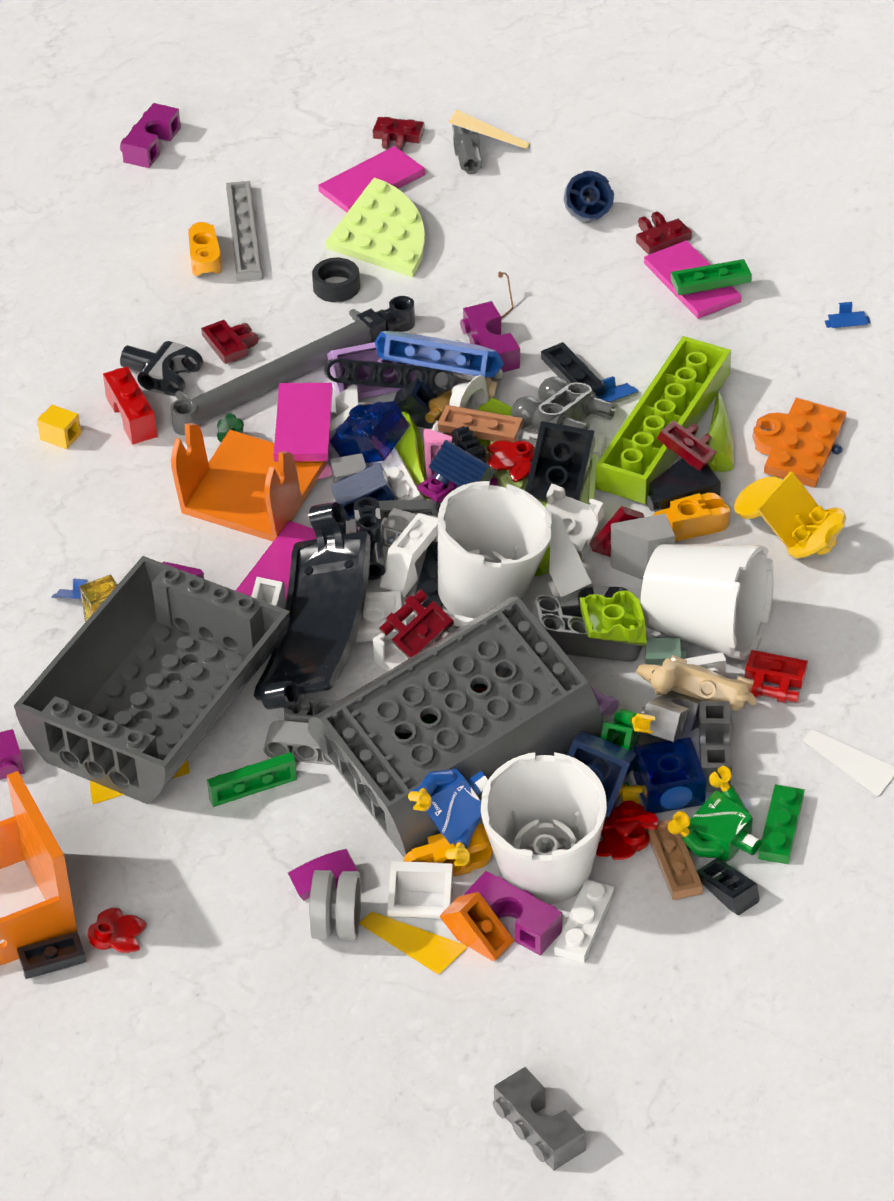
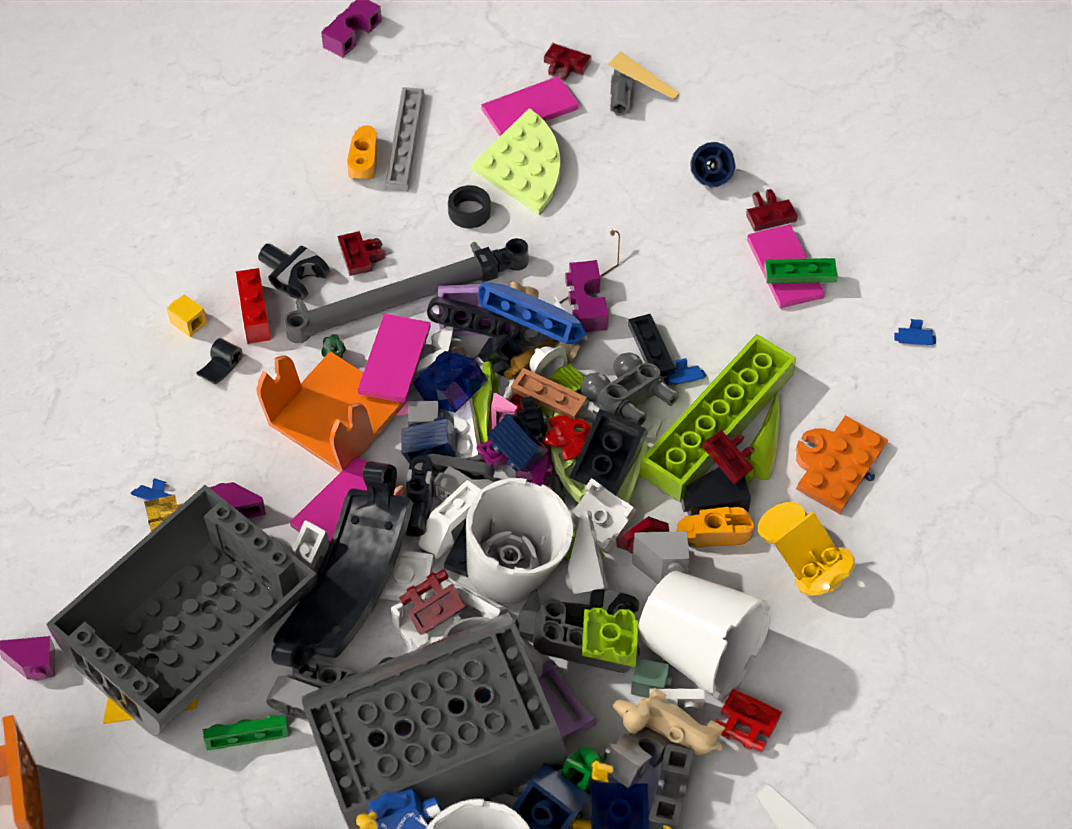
camera: 10 degrees right, 10 degrees up
(112, 461) = (223, 360): none -> black panel

